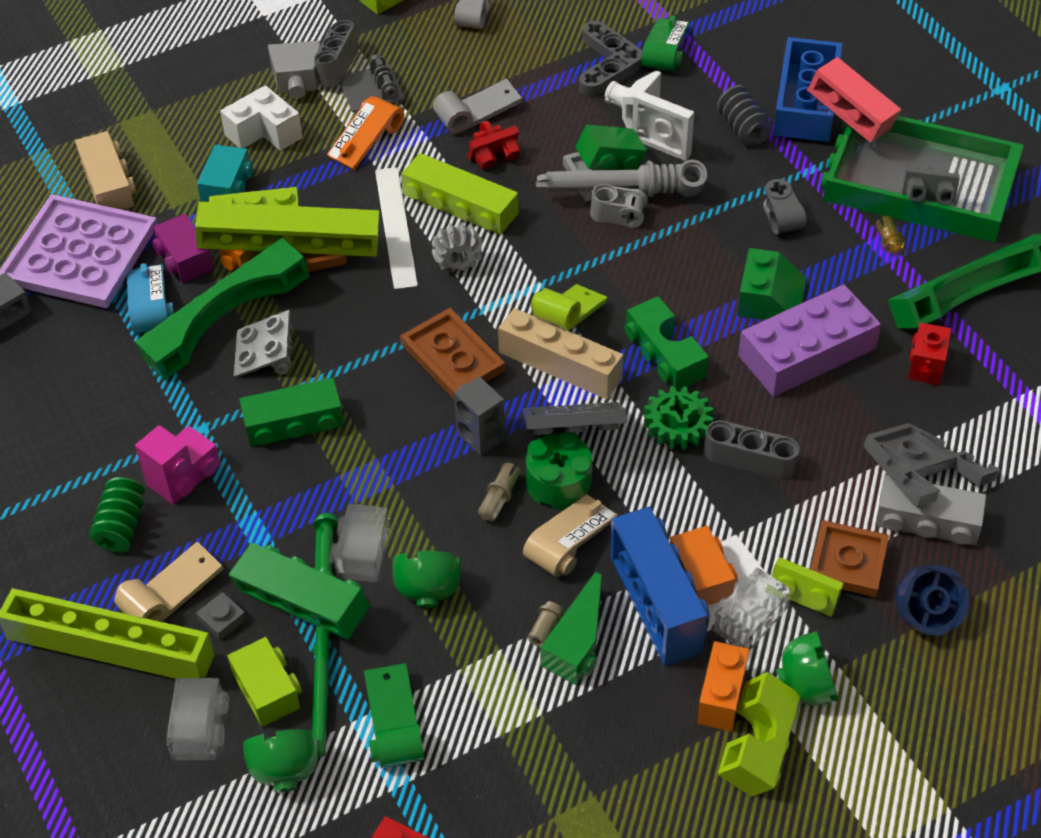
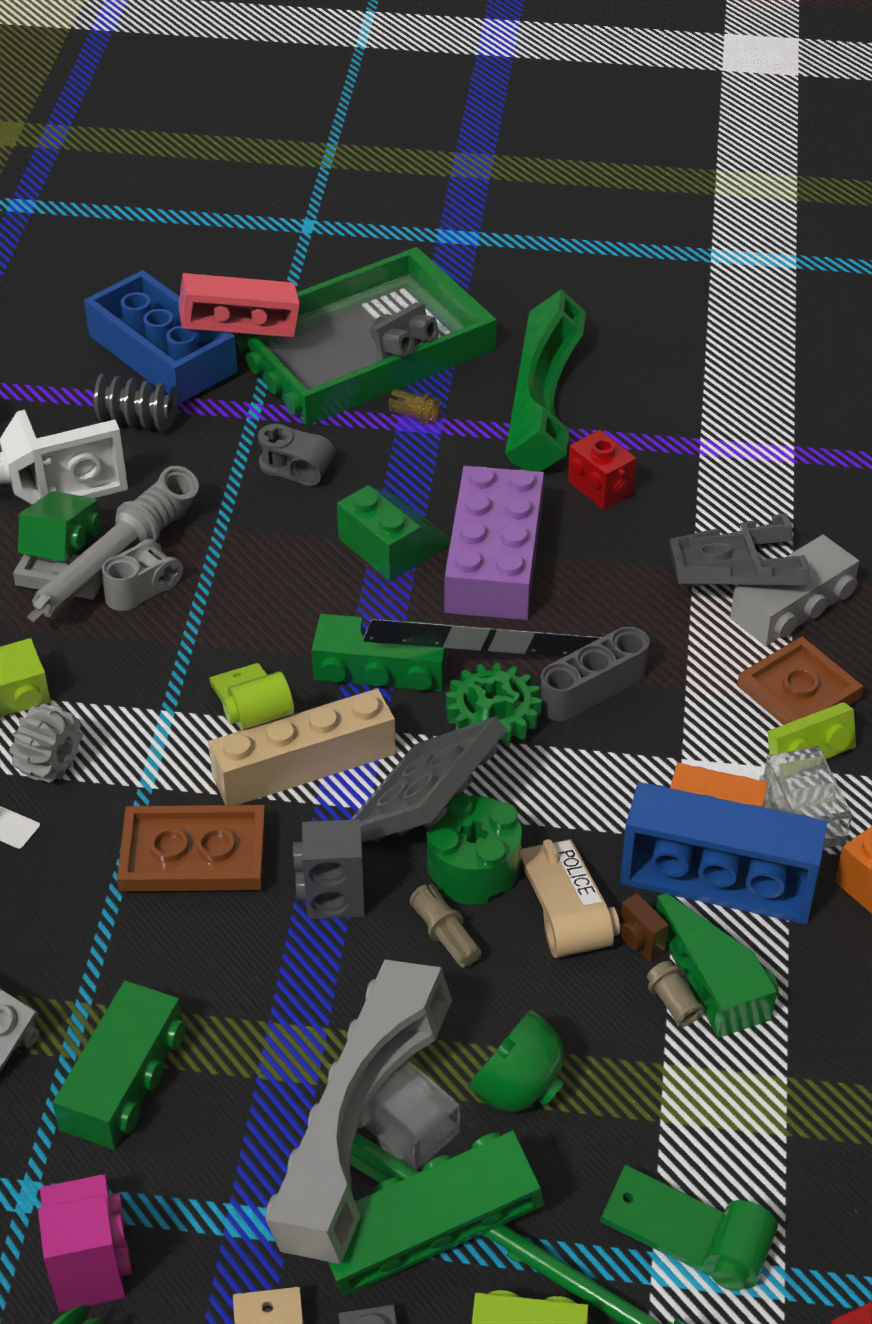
camera: 55 degrees left, 5 degrees down
(262, 529) = (316, 1203): none -> light grey arch
(575, 579) = (643, 928): none -> reddish brown plate
(706, 375) = (474, 638): none -> black sticker

